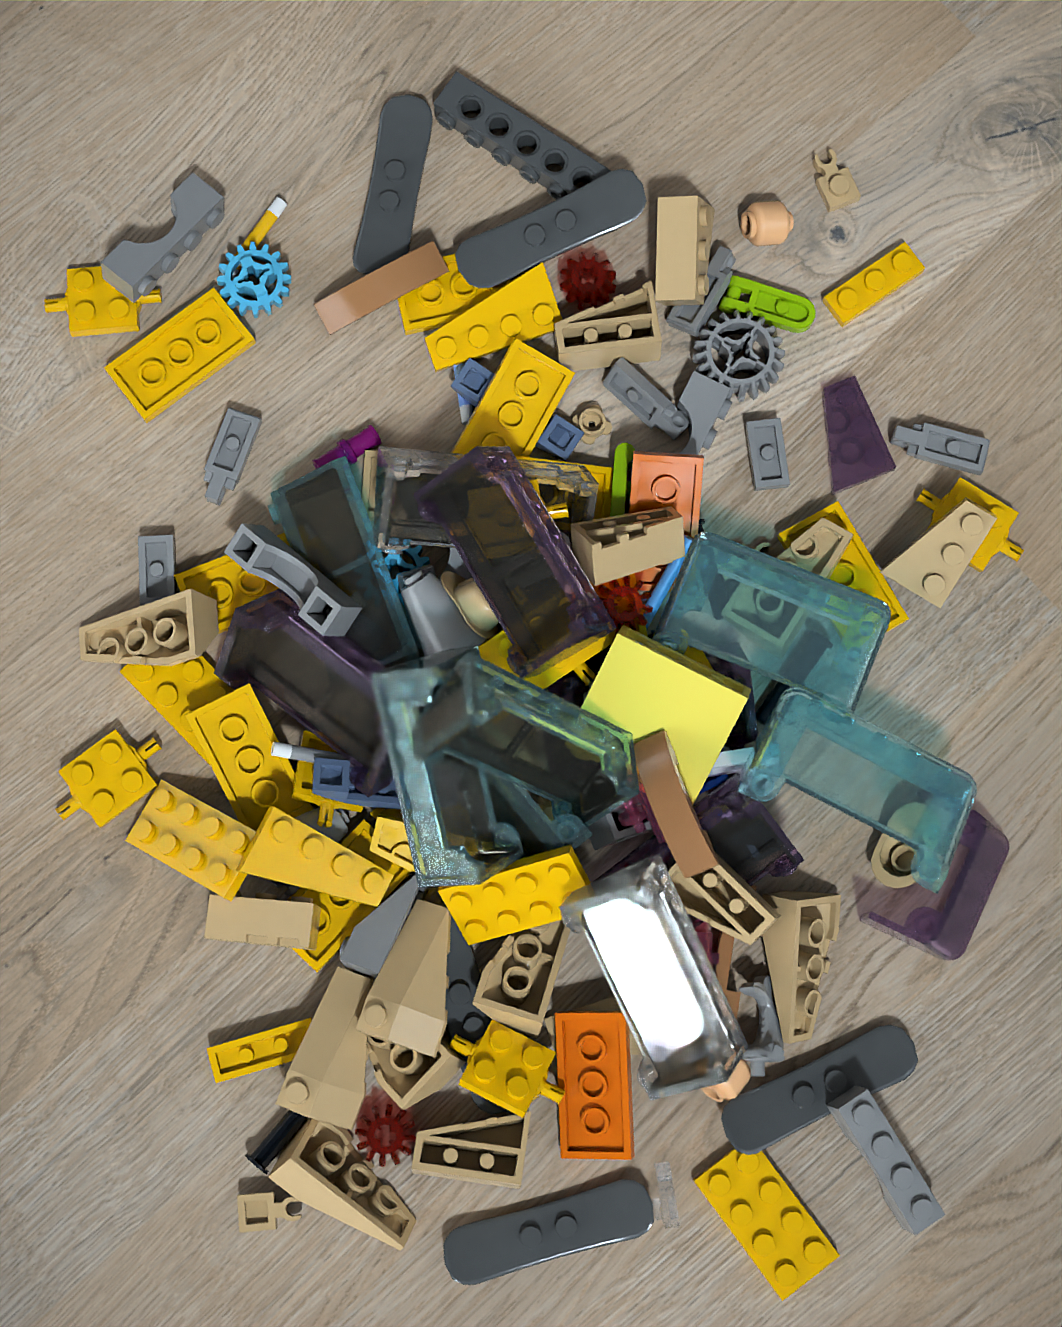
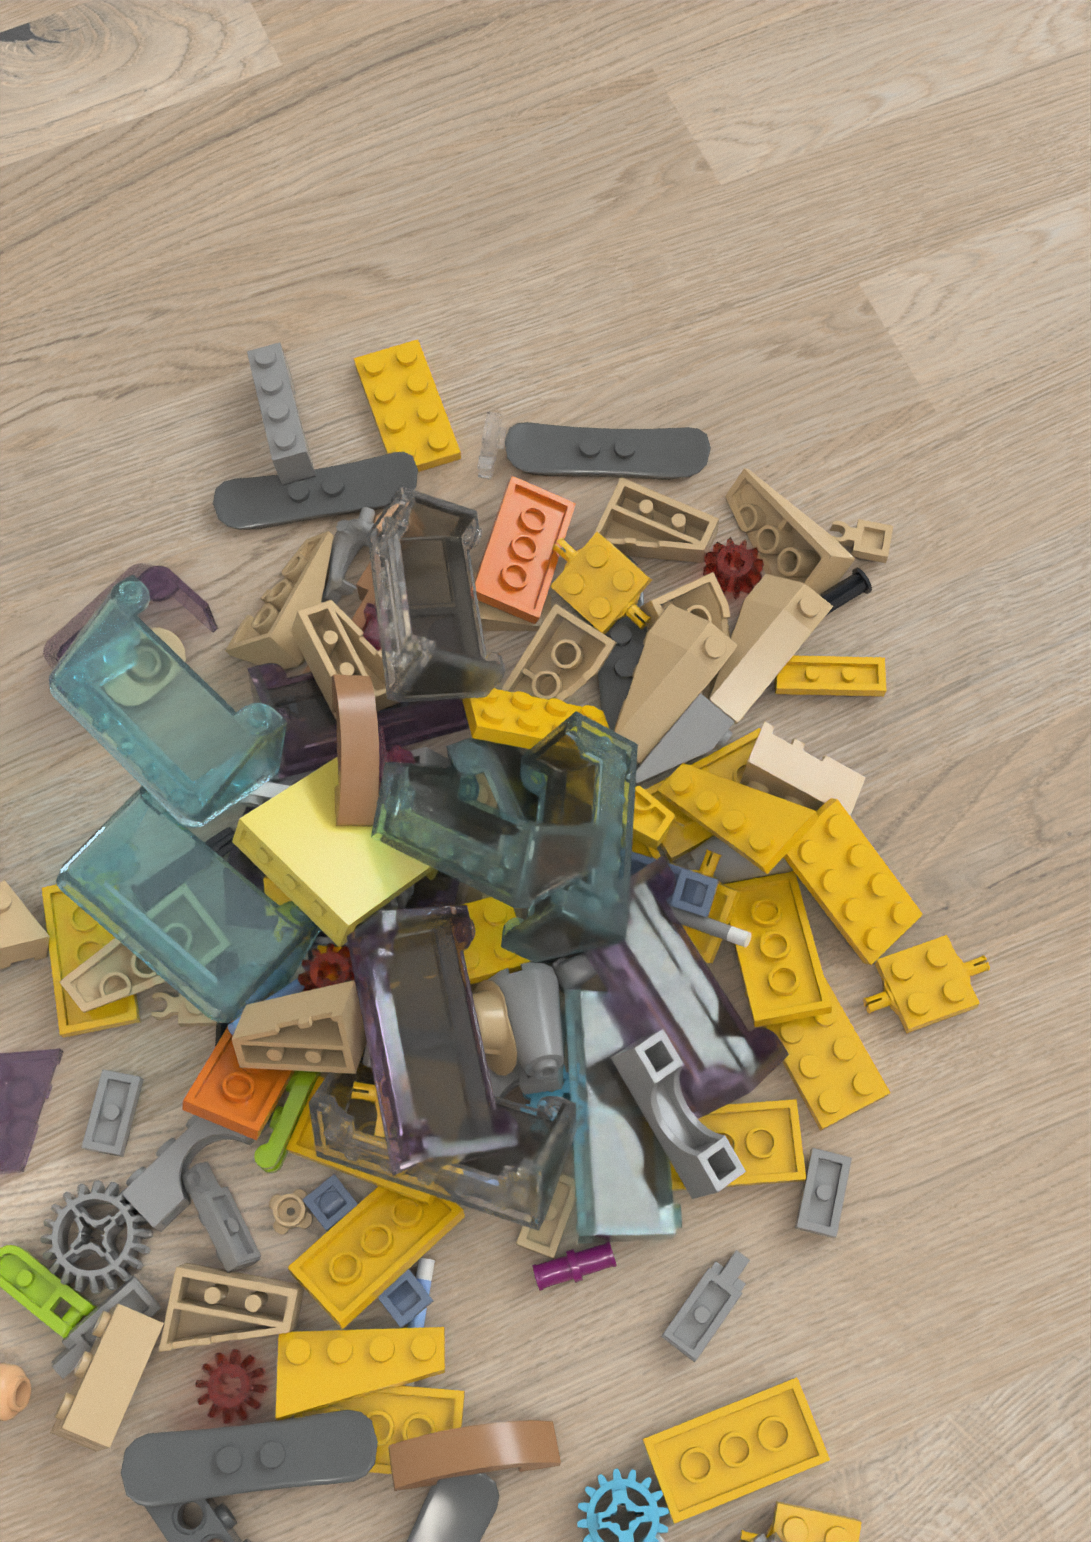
camera: 160 degrees left, 10 degrees down
(154, 633) = (836, 1104): tan wedge -> none

